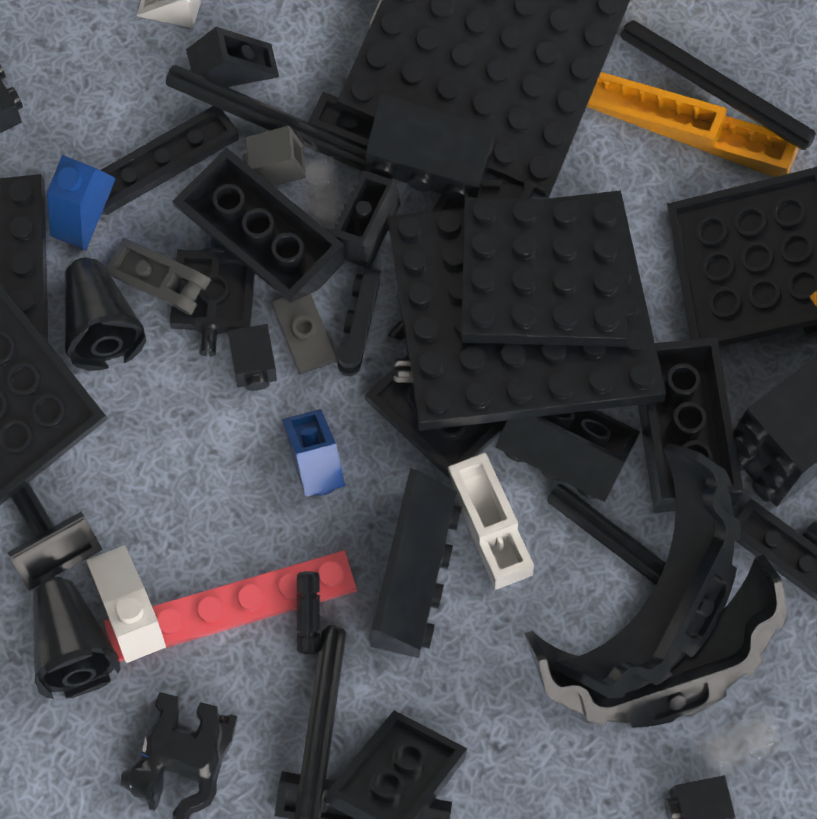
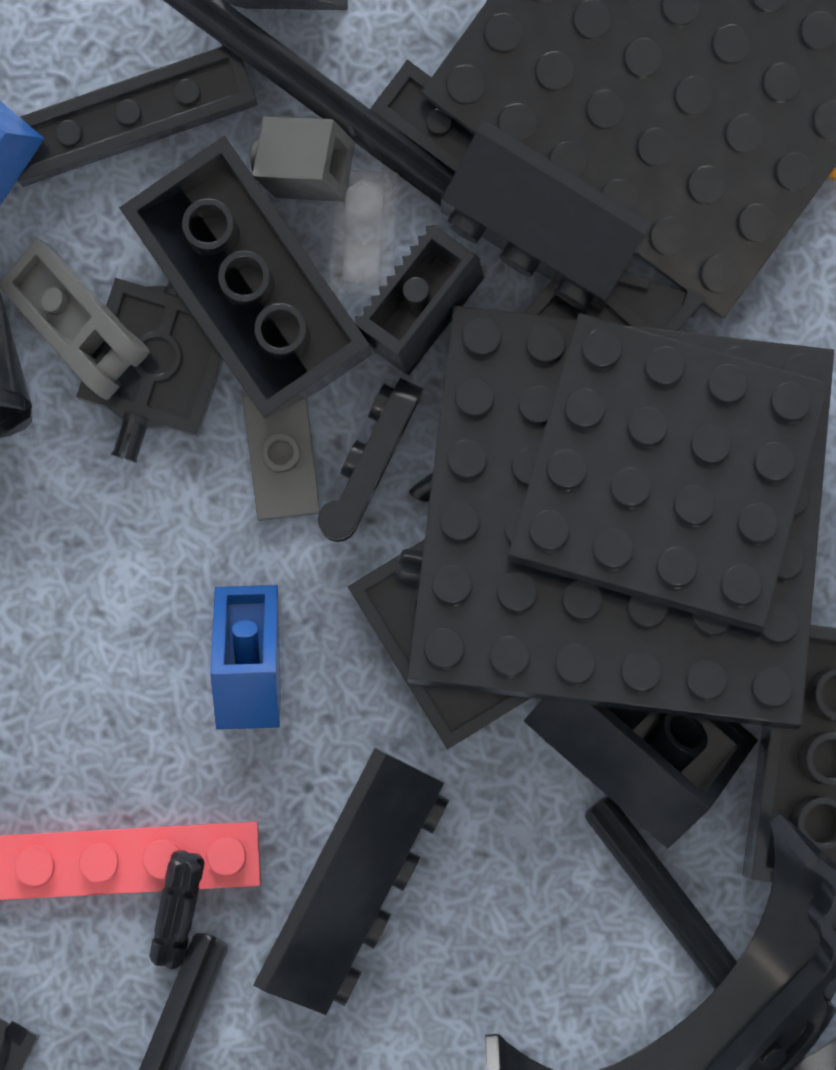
camera: 20 degrees right, 15 degrees up
(252, 357) = (189, 483): black brick -> none
(491, 521) = (486, 831): white slope -> none

